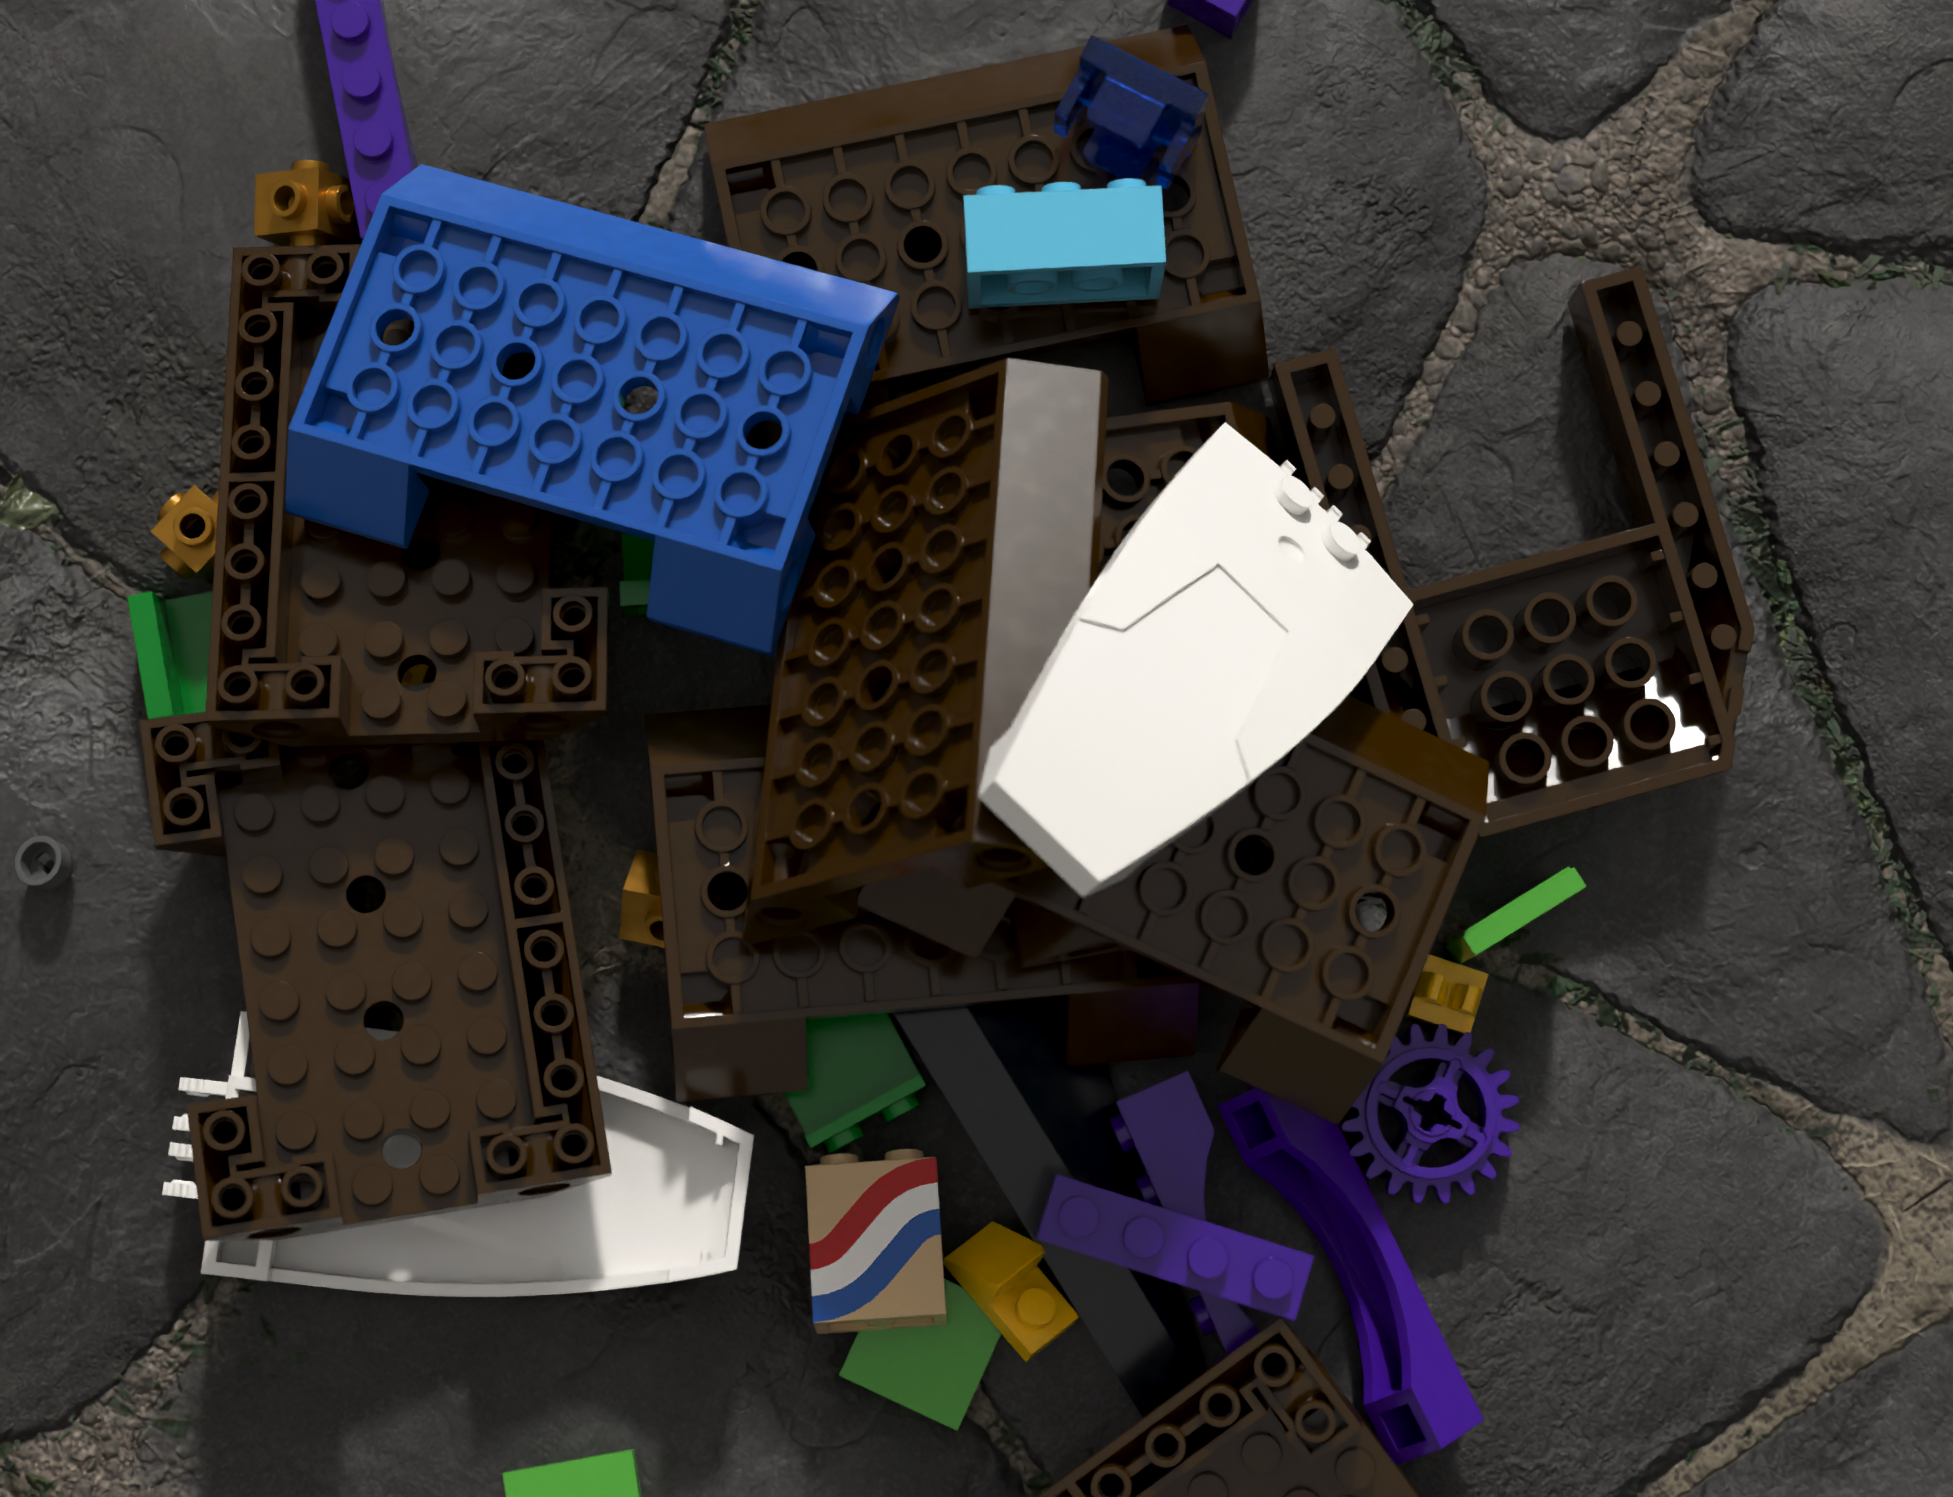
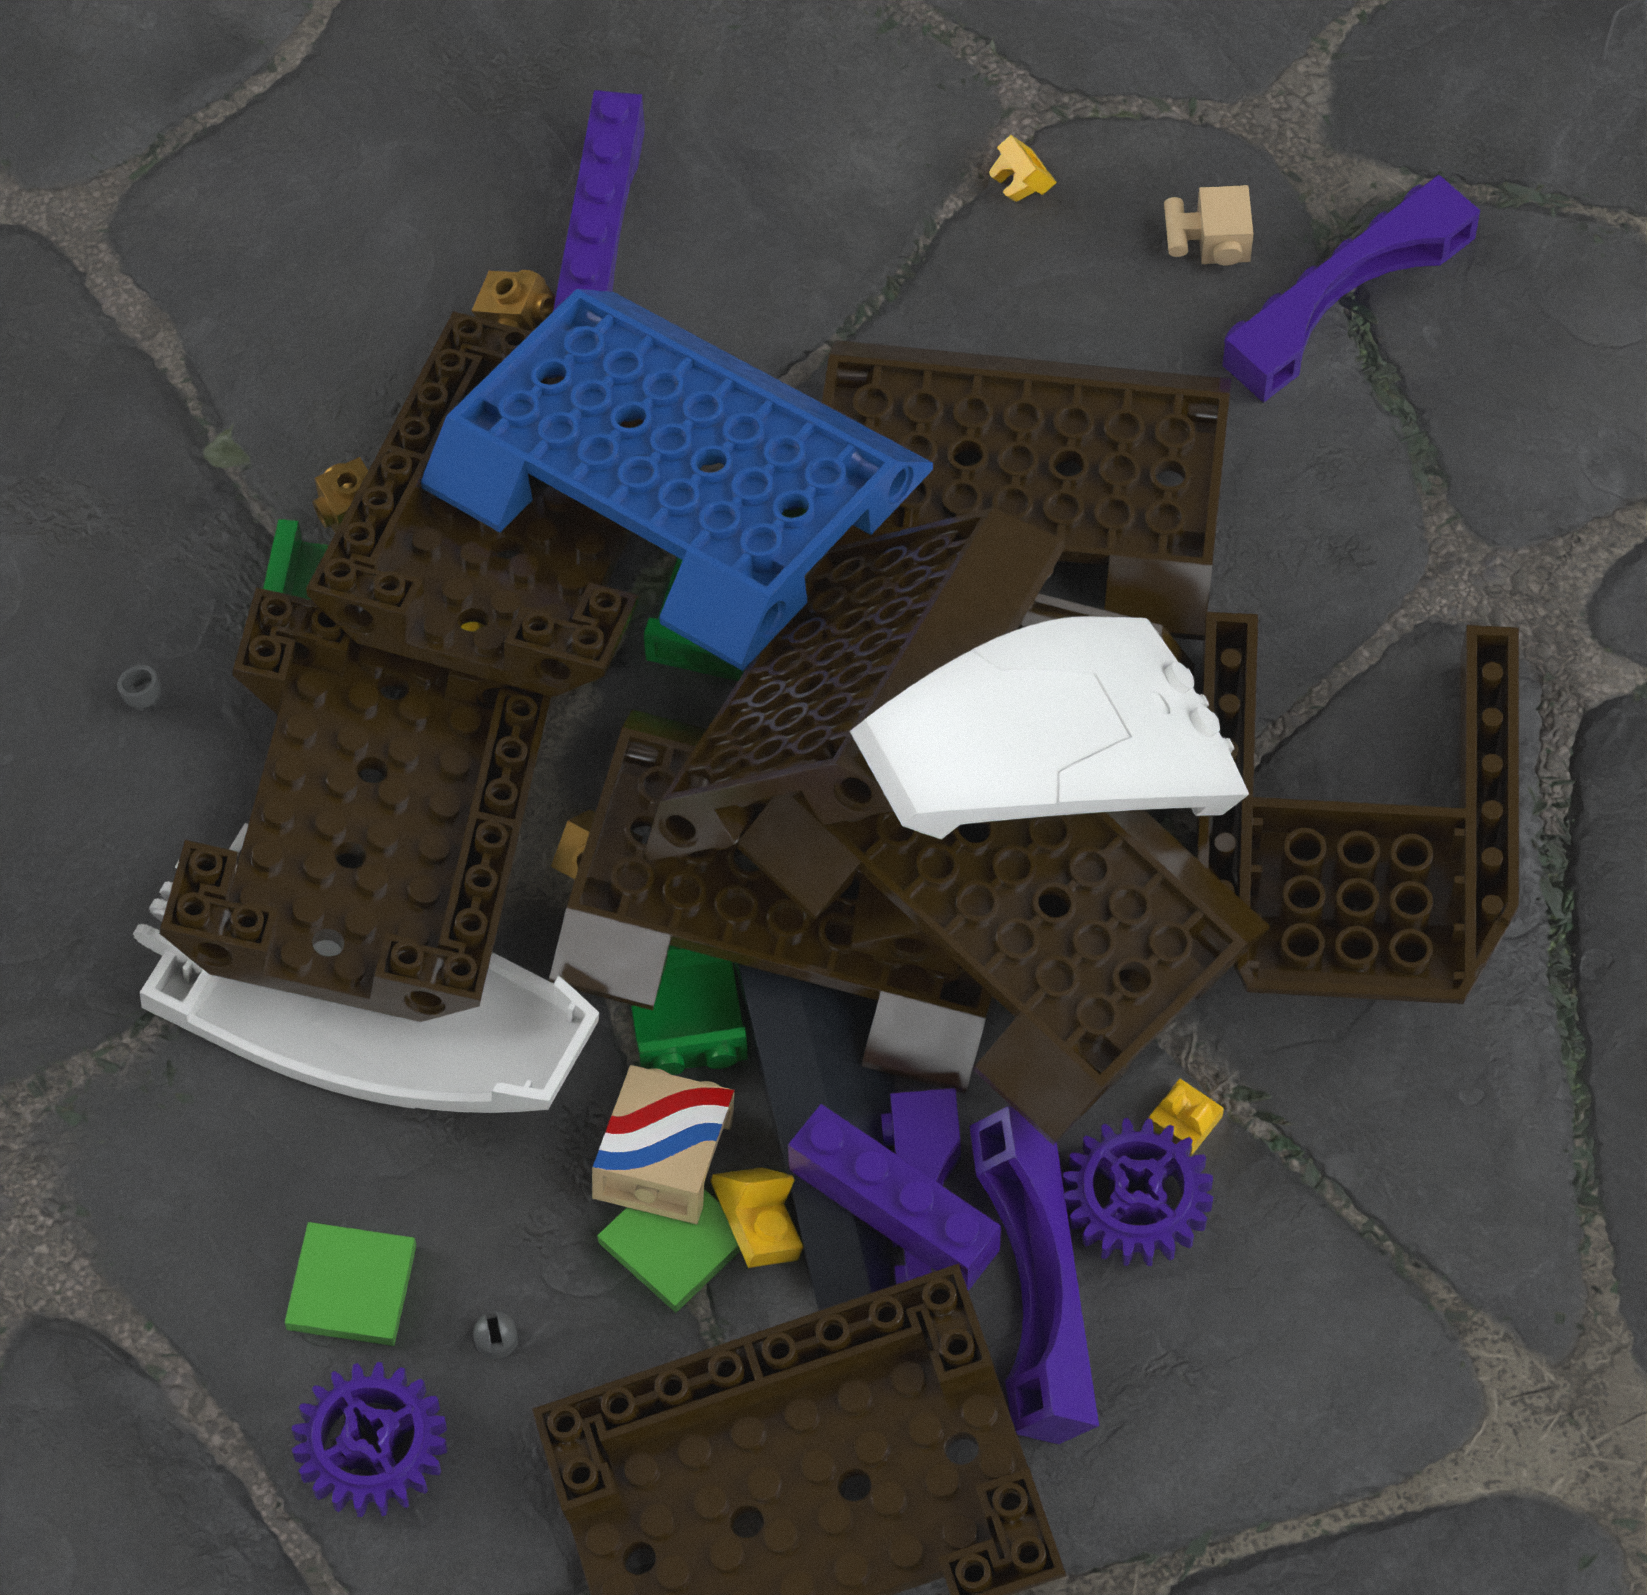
camera: 20 degrees right, 20 degrees down
(1064, 244) = (1069, 470): medium azure brick -> none
(1133, 113) = (1168, 397): clear blue panel -> none
(1514, 915) = (1256, 1059): bright green tile -> none

